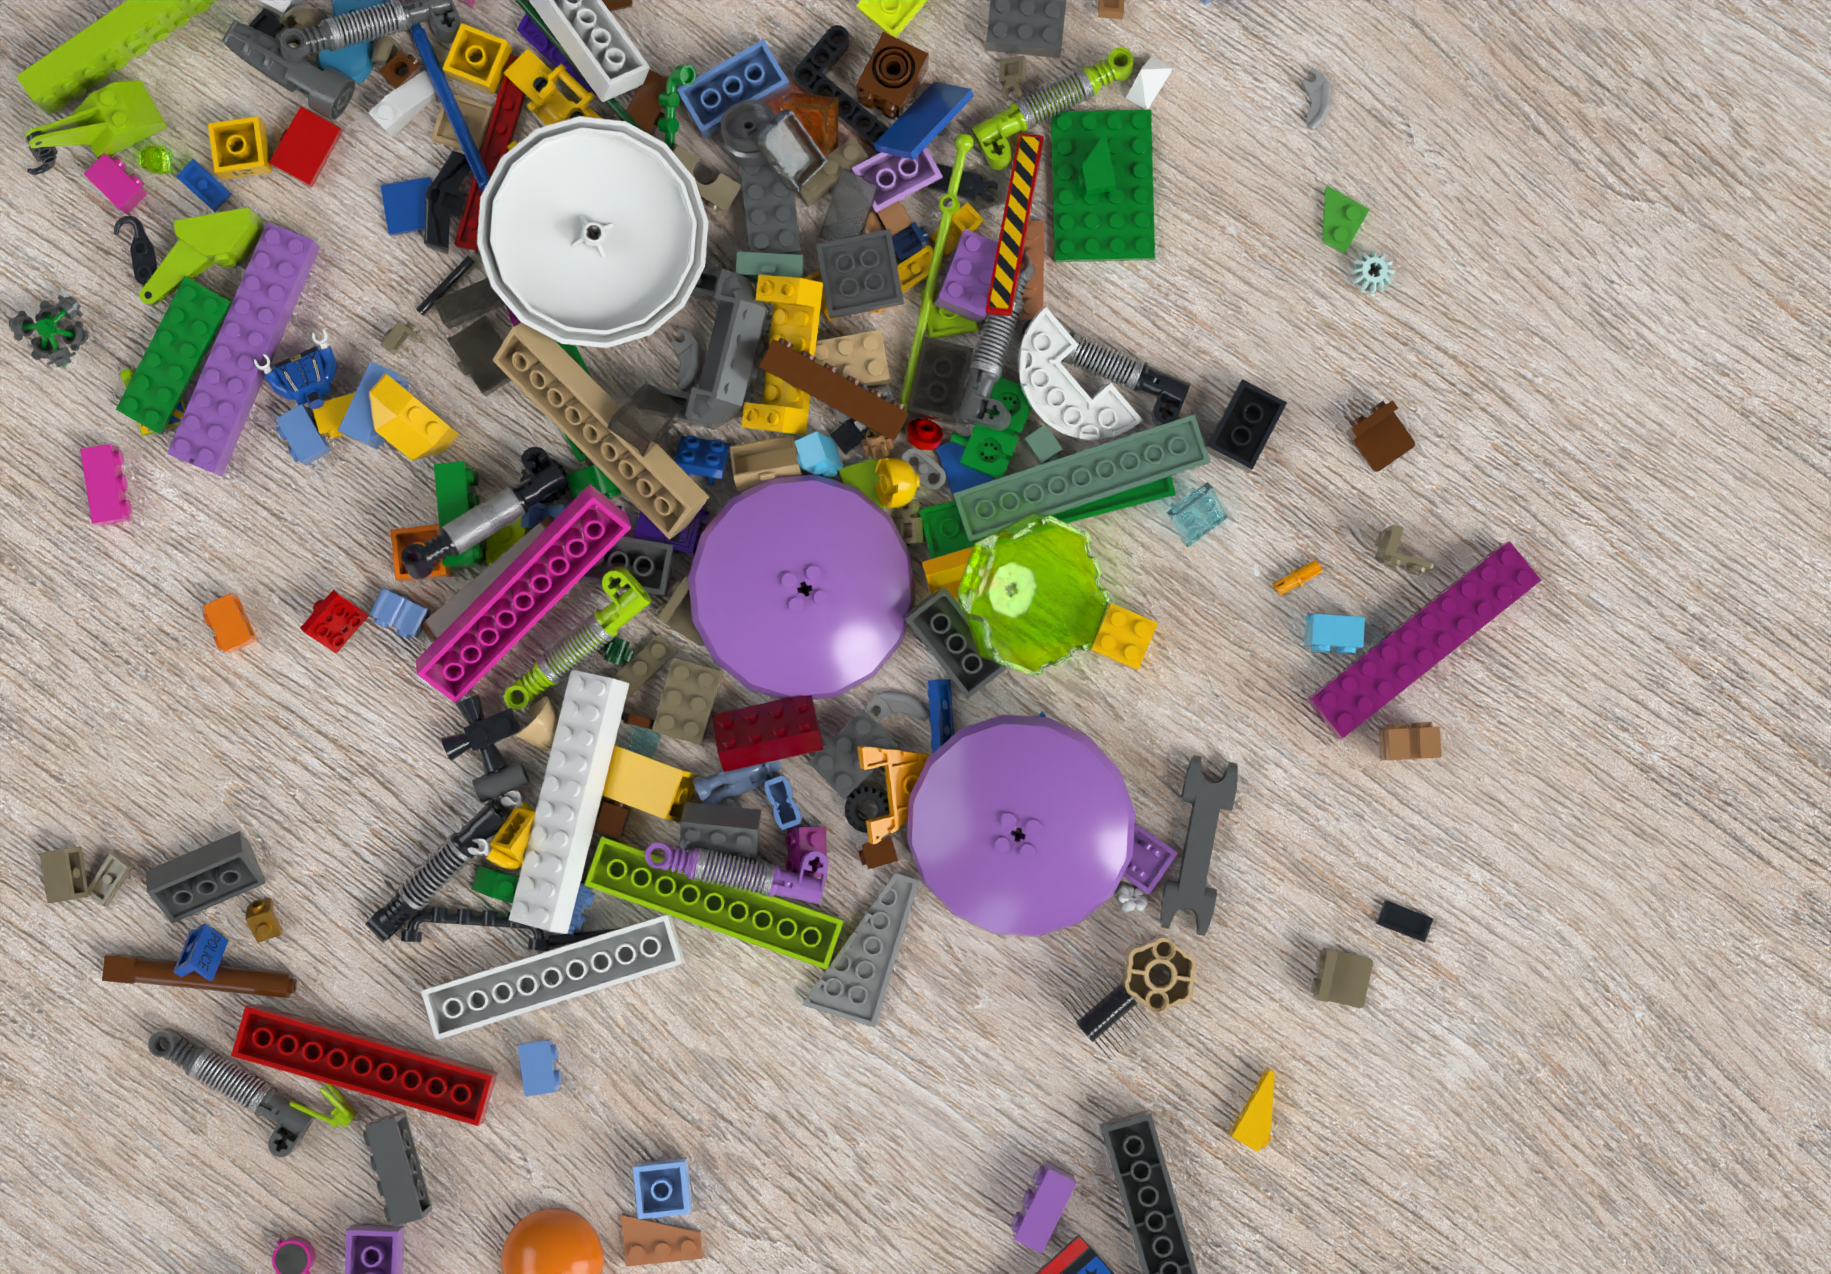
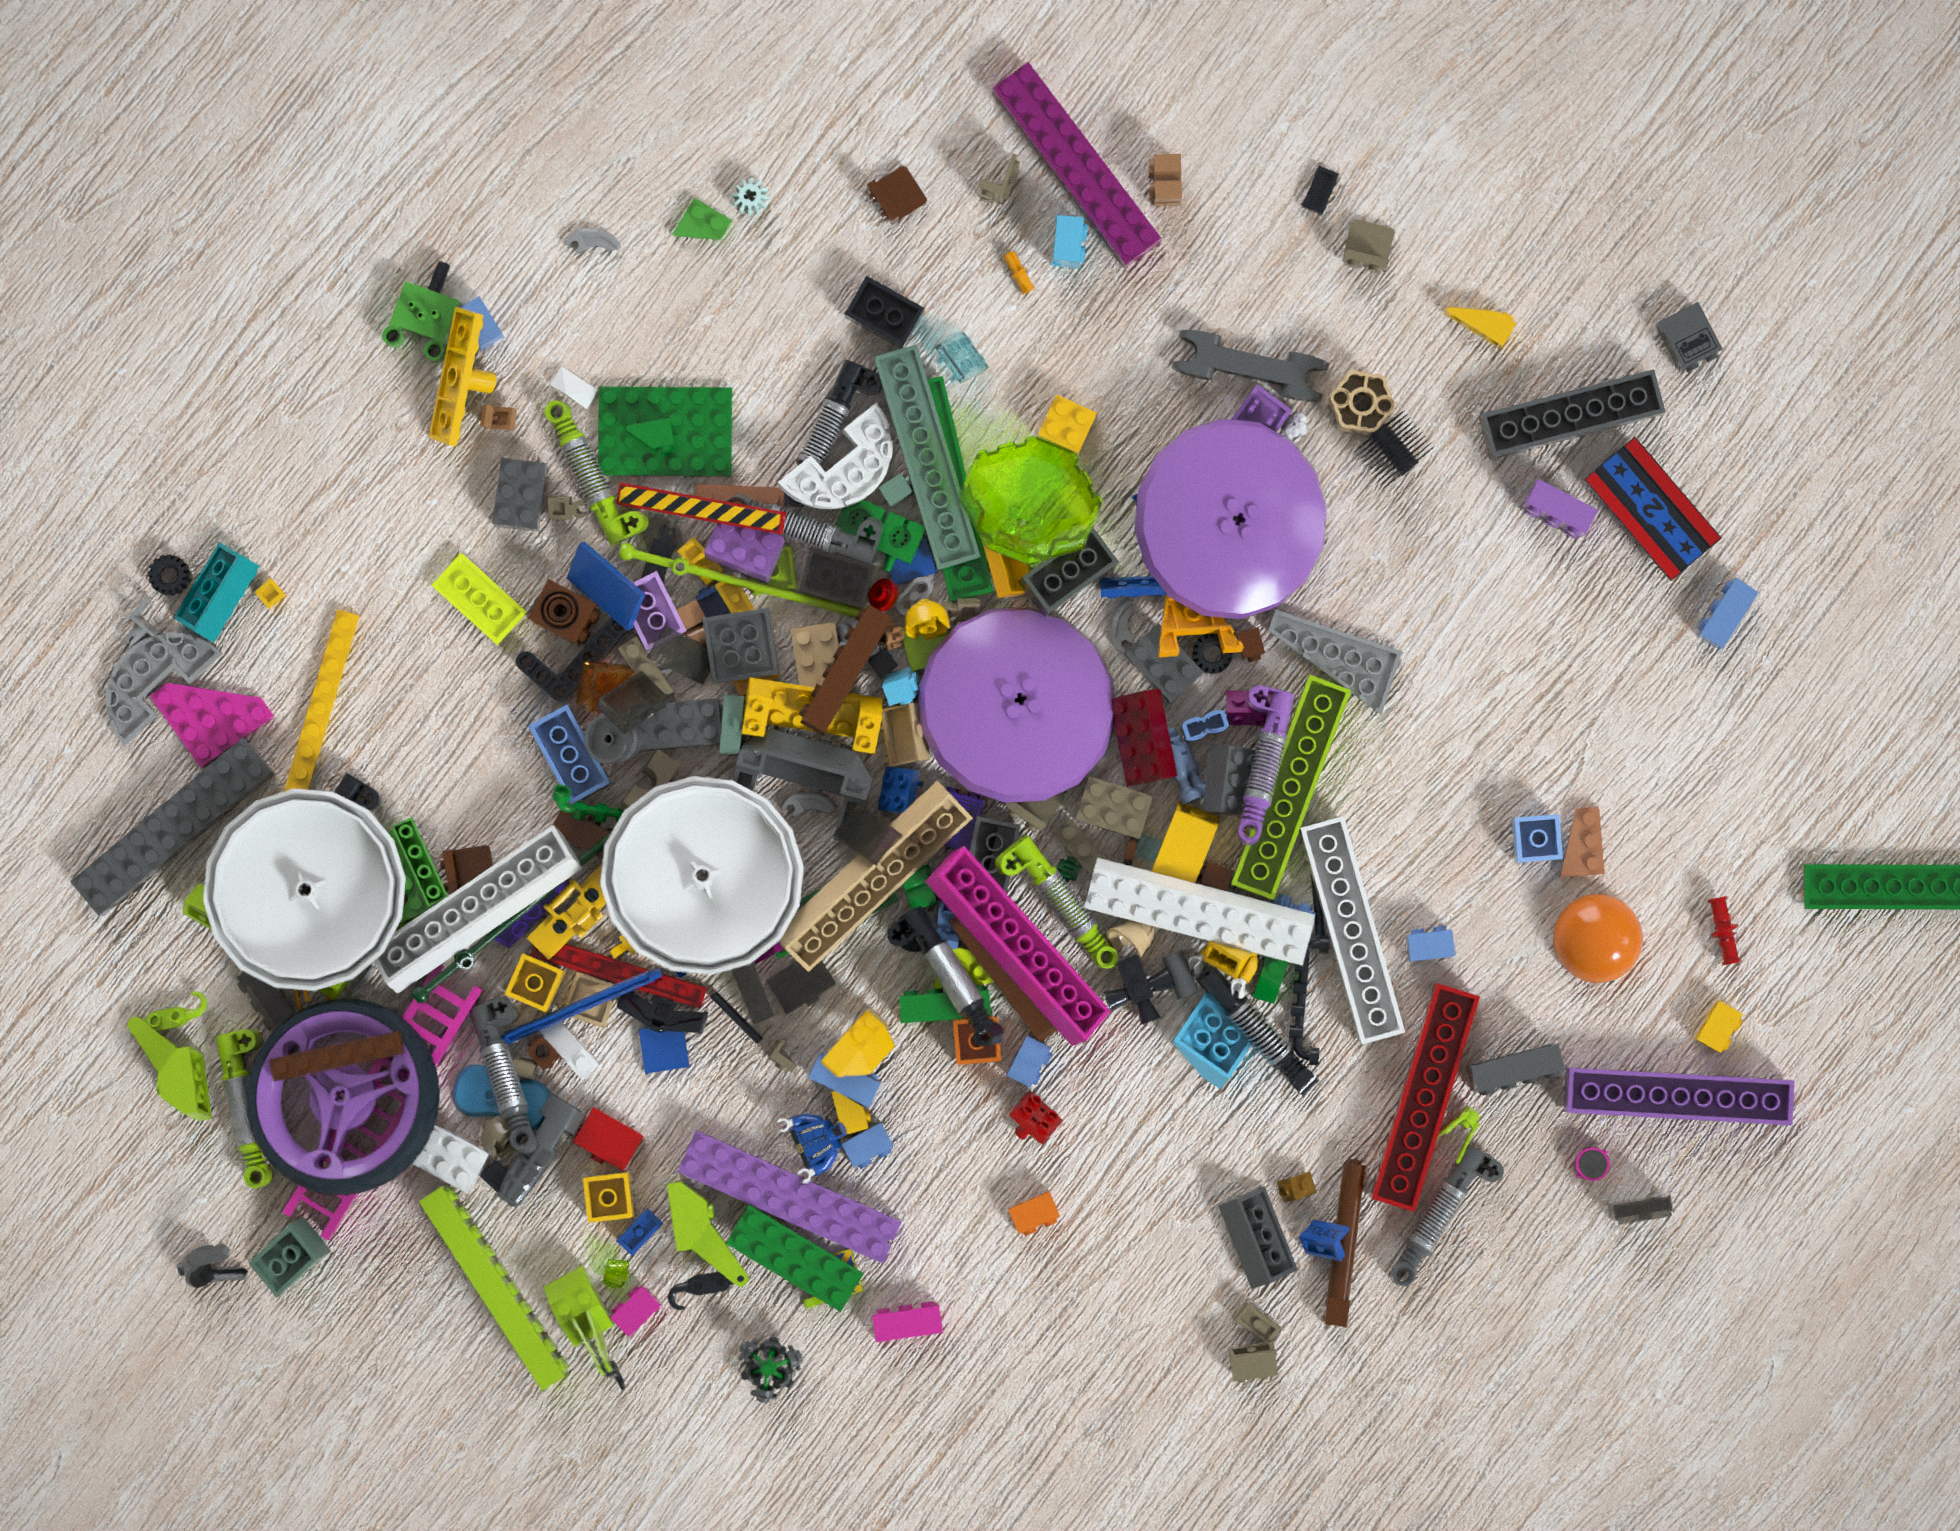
camera: 90 degrees left, 0 degrees up
(422, 819) = (1212, 1042): none -> medium azure slope

